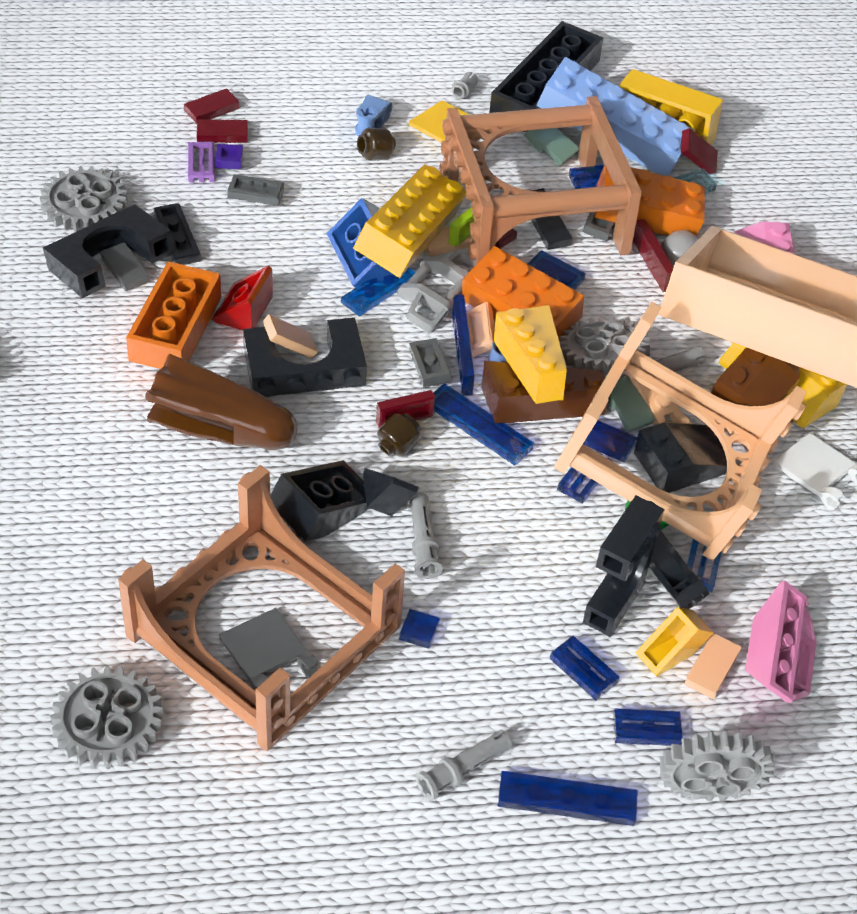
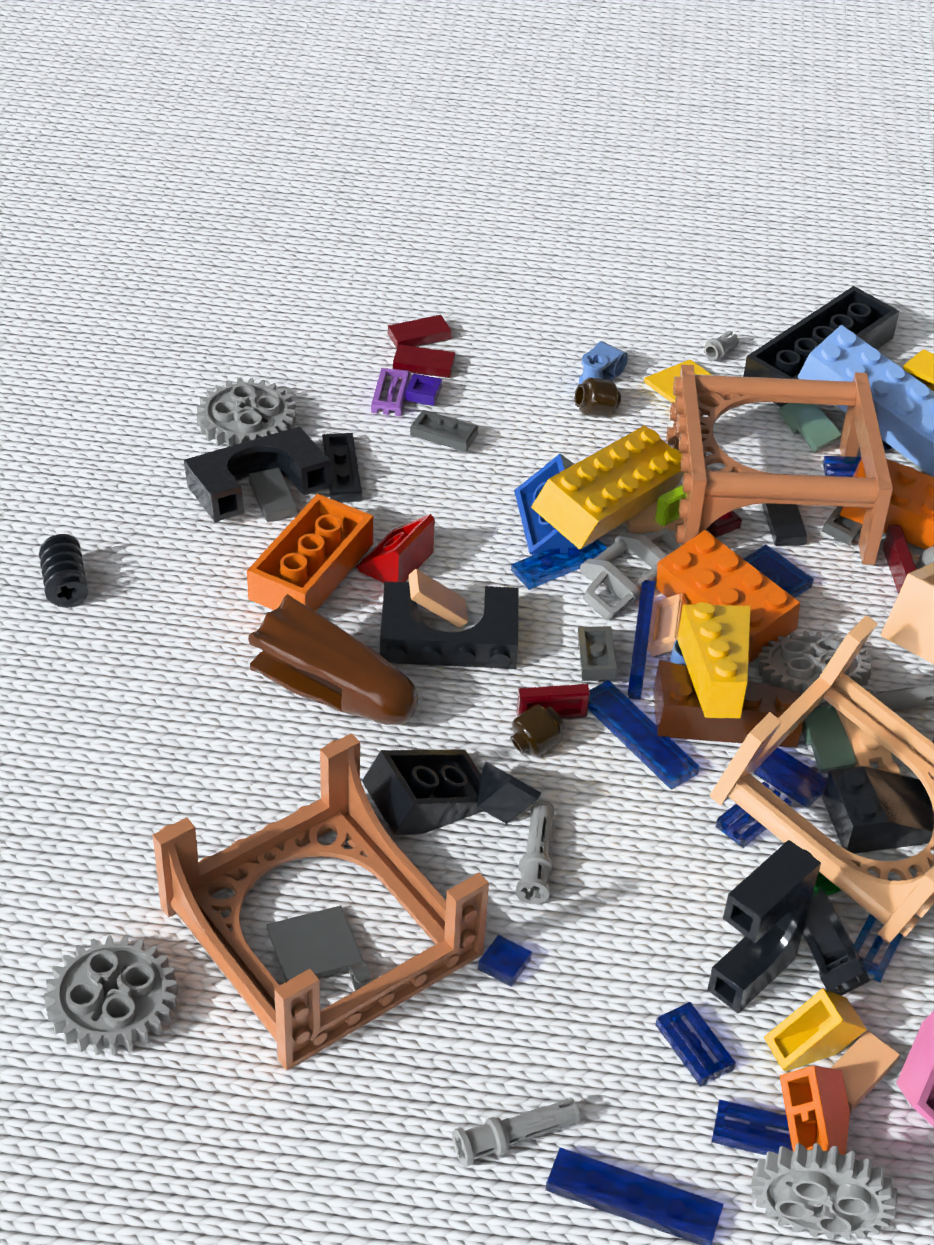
camera: 15 degrees right, 5 degrees down
(692, 703) = (816, 1107): none -> orange slope

